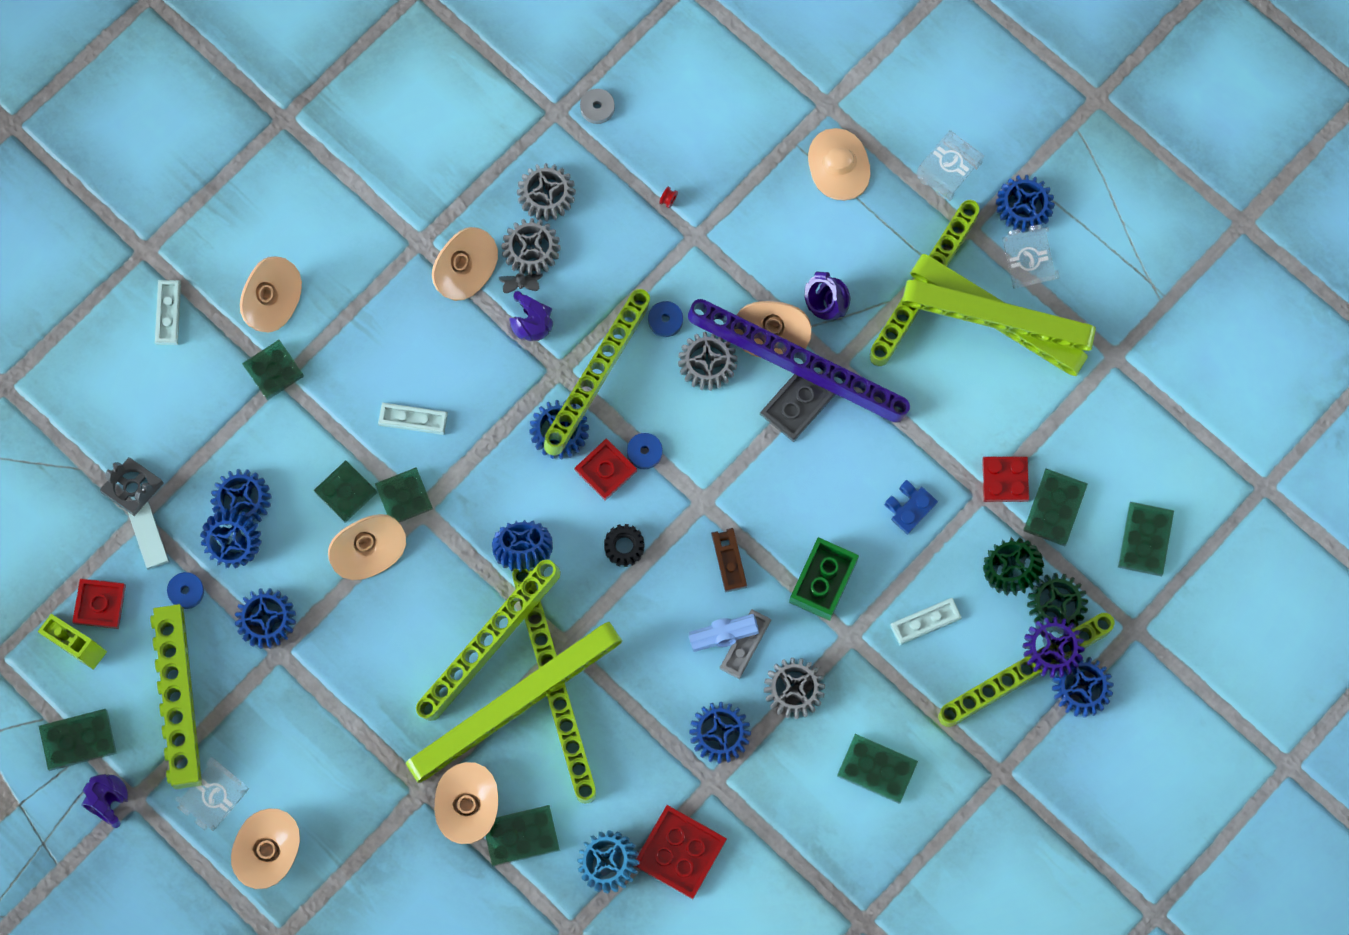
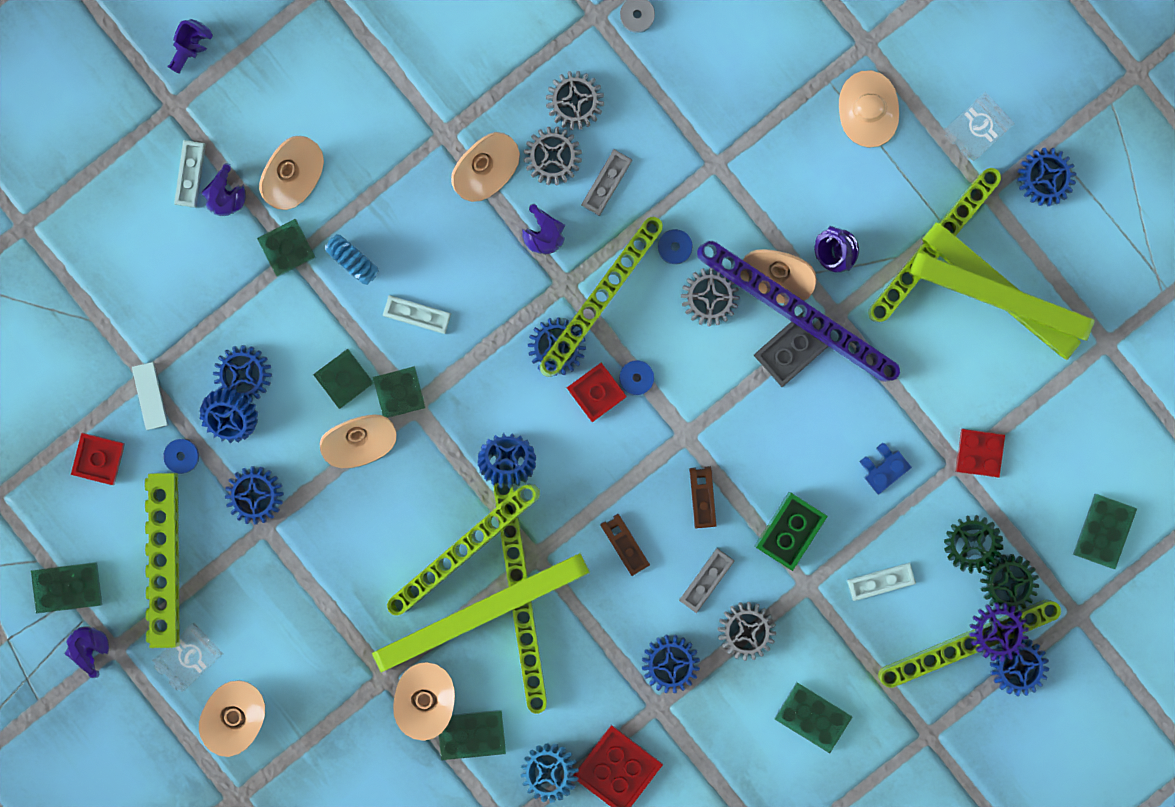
camera: 15 degrees right, 15 degrees up
(72, 641) = (69, 493): lime slope -> none
(141, 496) = (148, 357): dark grey piece -> none
(153, 186) = (186, 42): none -> dark purple piece
(201, 331) = (219, 199): none -> dark purple helmet
(340, 369) = (351, 259): none -> dark azure gear
(512, 283) = (537, 191): dark grey piece -> none
(588, 267) = (606, 182): none -> light grey tile
(624, 532) = (604, 483): black tyre -> none
(656, 618) = (625, 545): none -> reddish brown plate
(668, 197) = (695, 122): red bush -> none
(723, 632) = (687, 569): light blue piece -> none
(1029, 257) = (1041, 235): clear panel -> none
(1055, 507) = (1023, 488): clear green plate -> none

